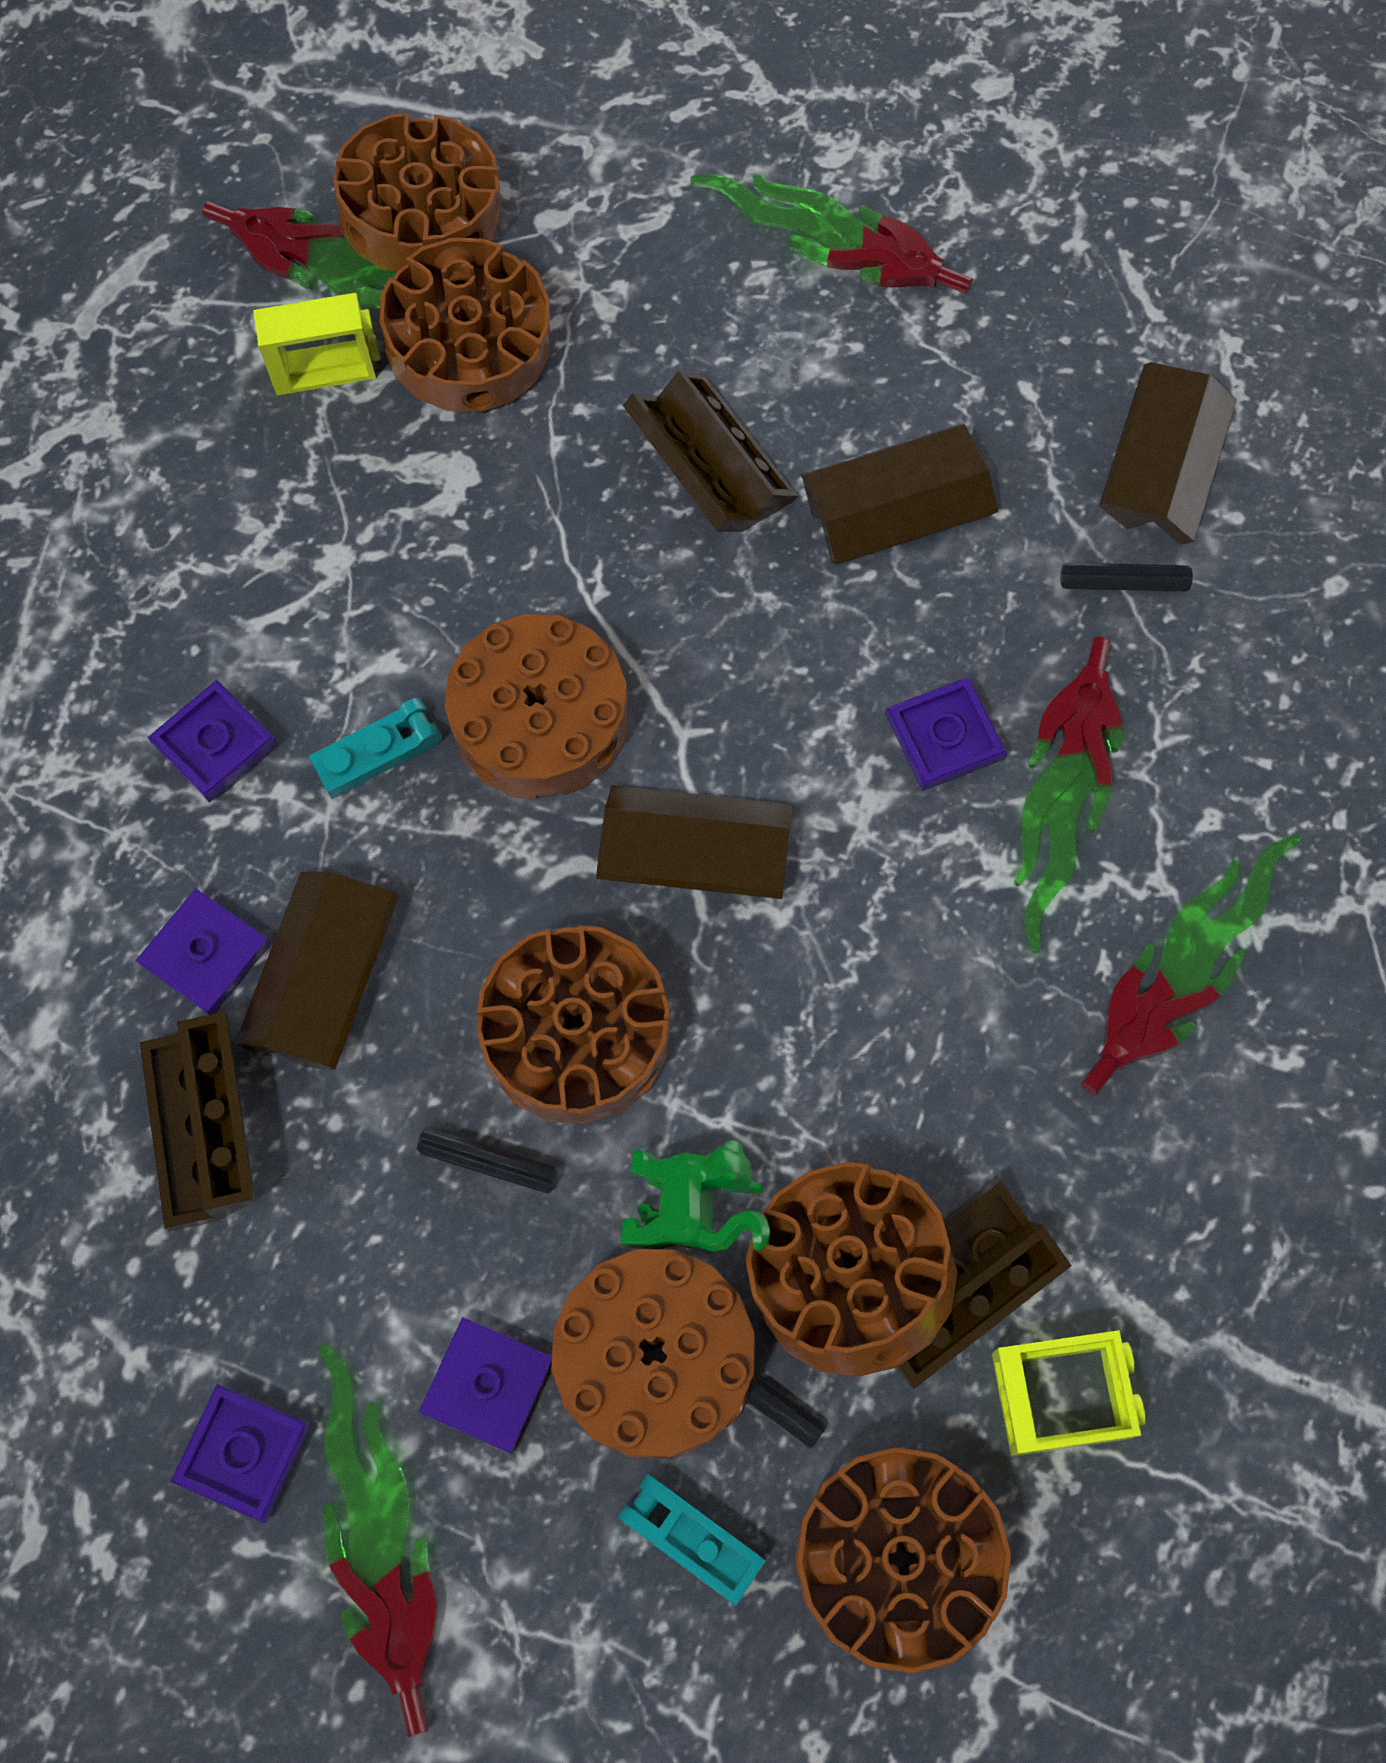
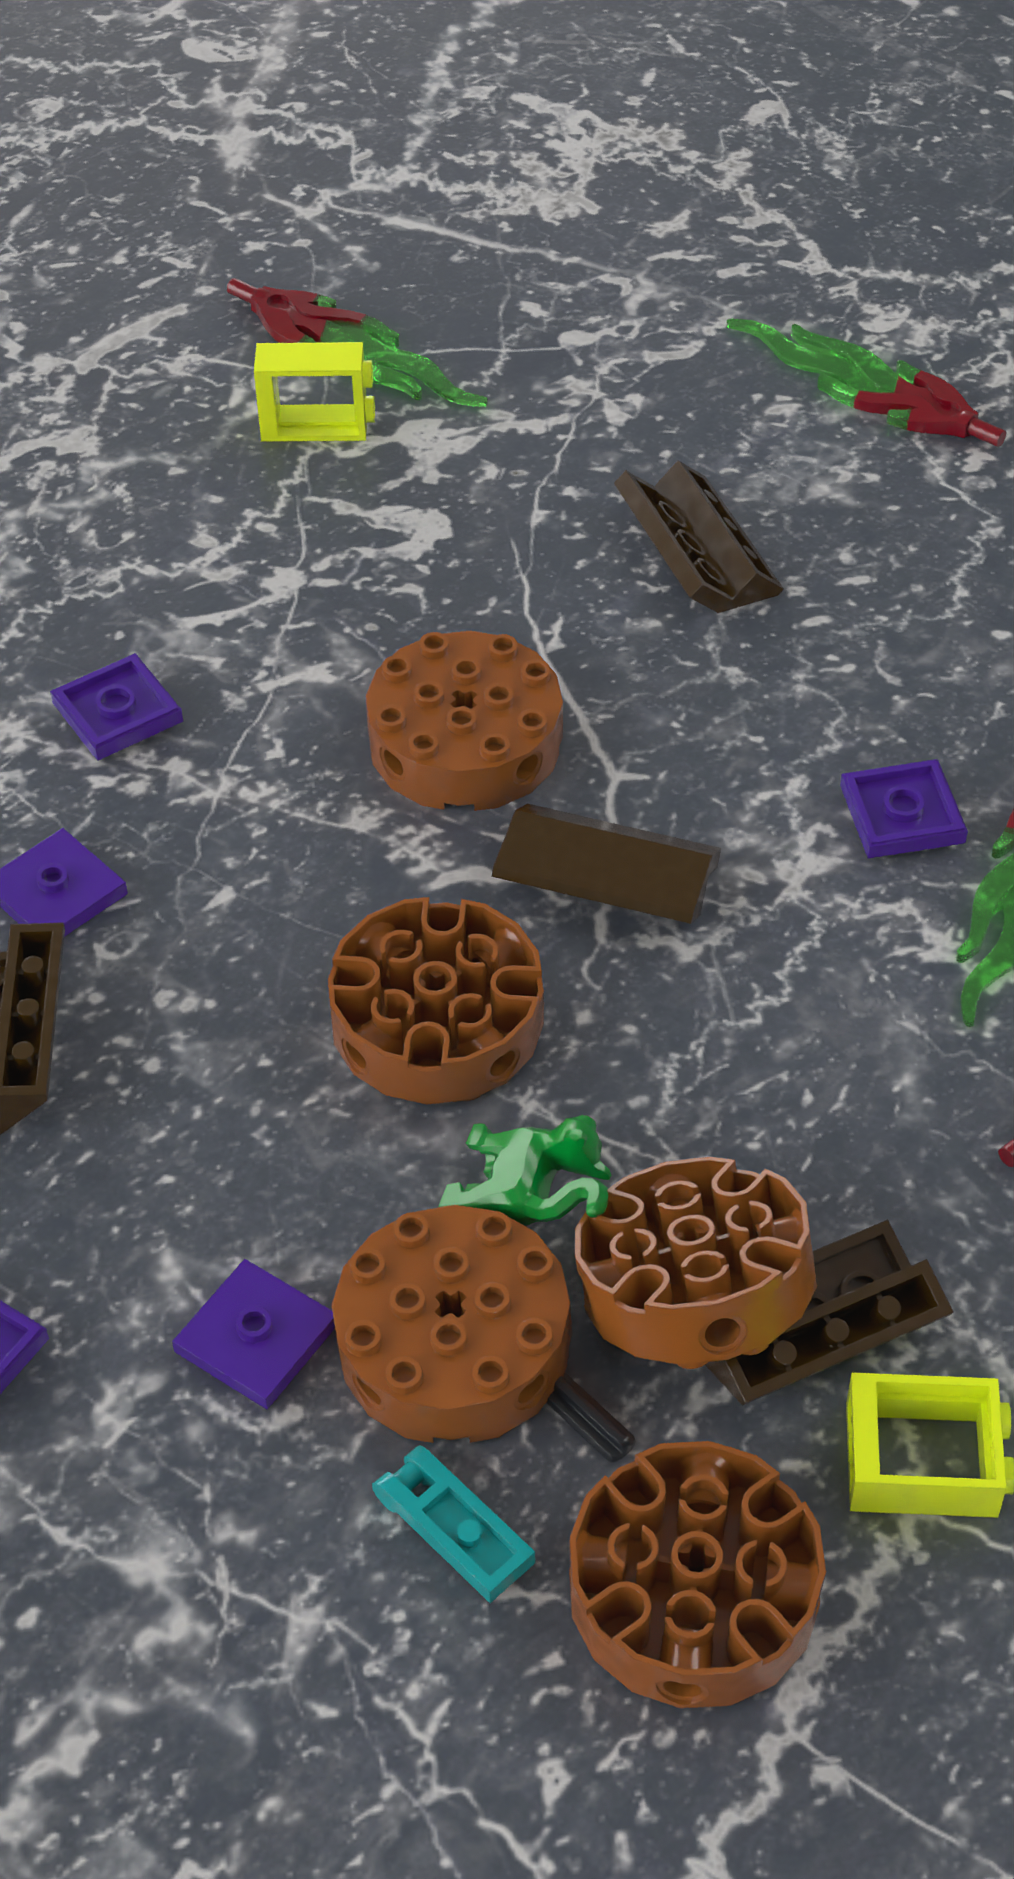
camera: 10 degrees right, 20 degrees down
(317, 969) = (172, 915): dark brown slope -> none
(373, 1563) = (79, 1492): piece -> none
(375, 748) = (285, 738): teal plate -> none
(413, 186) = (445, 290): dark orange brick -> none
(465, 325) = (467, 397): dark orange brick -> none
(487, 1160) = (310, 1119): black axle -> none
(900, 493) = (894, 596): dark brown slope -> none

